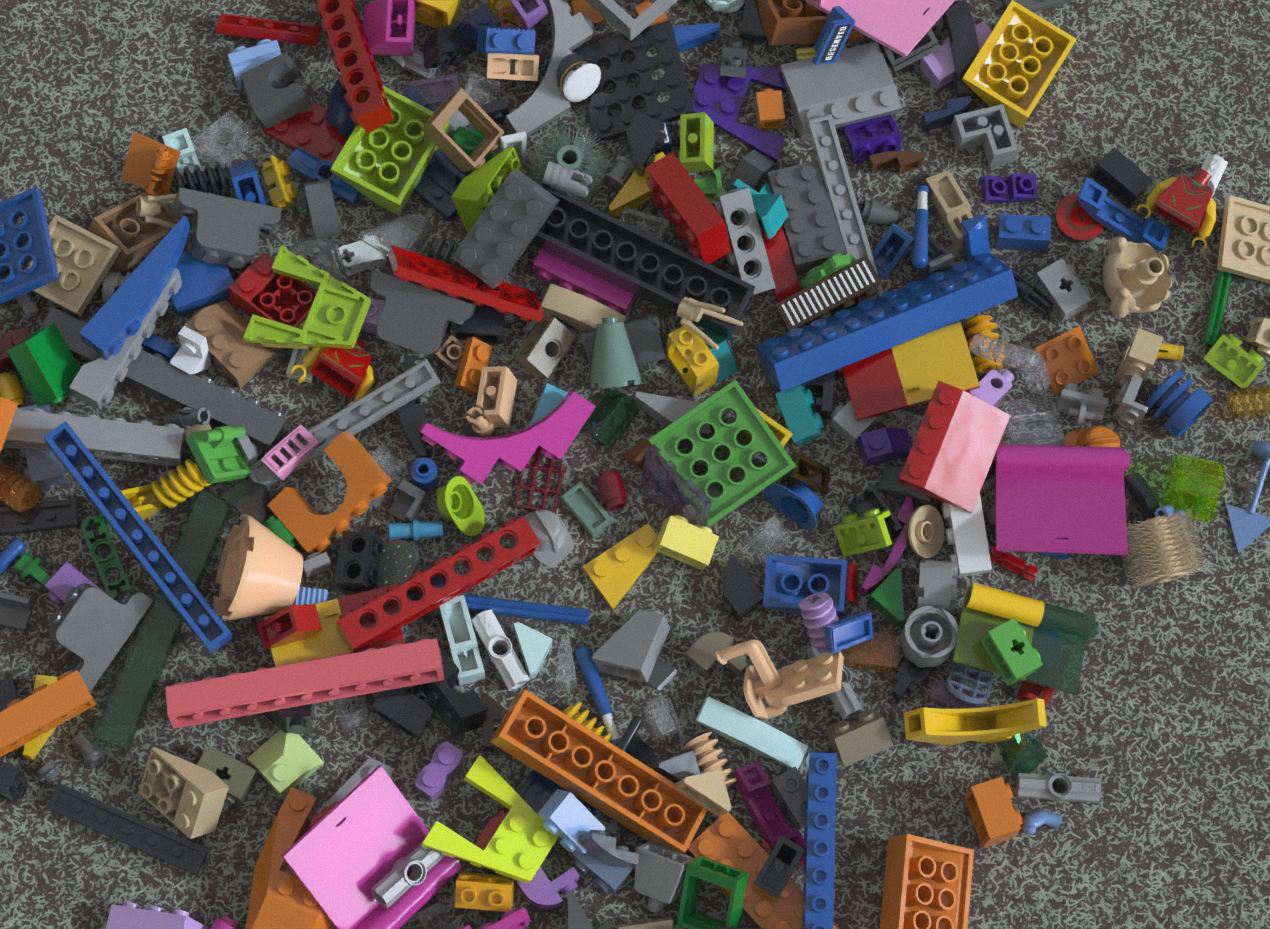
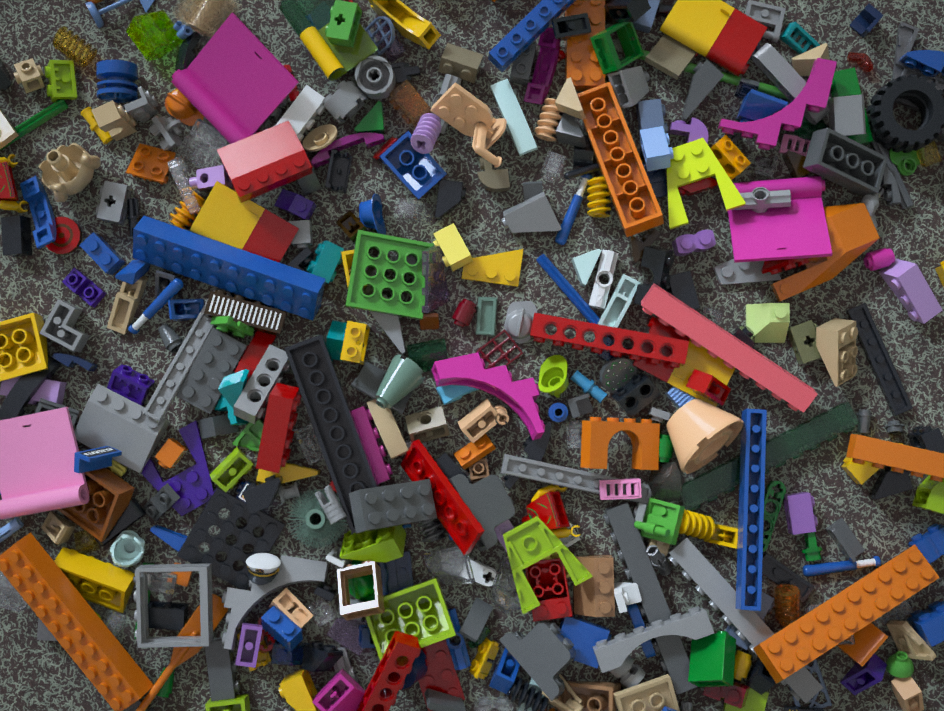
camera: 130 degrees left, 15 degrees up
(96, 627) = (809, 482): dark grey brick -> none
(136, 296) = (637, 652): blue slope -> none
(566, 675) = (581, 234): clear slope -> none
(605, 848) = (650, 115): dark grey slope -> none
(692, 310) = (333, 362): tan plant -> none
(848, 632) = (417, 114): blue tile -> none
(863, 532) = (353, 166): lime bracket -> none
(902, 161) = (128, 356): reddish brown slope -> none

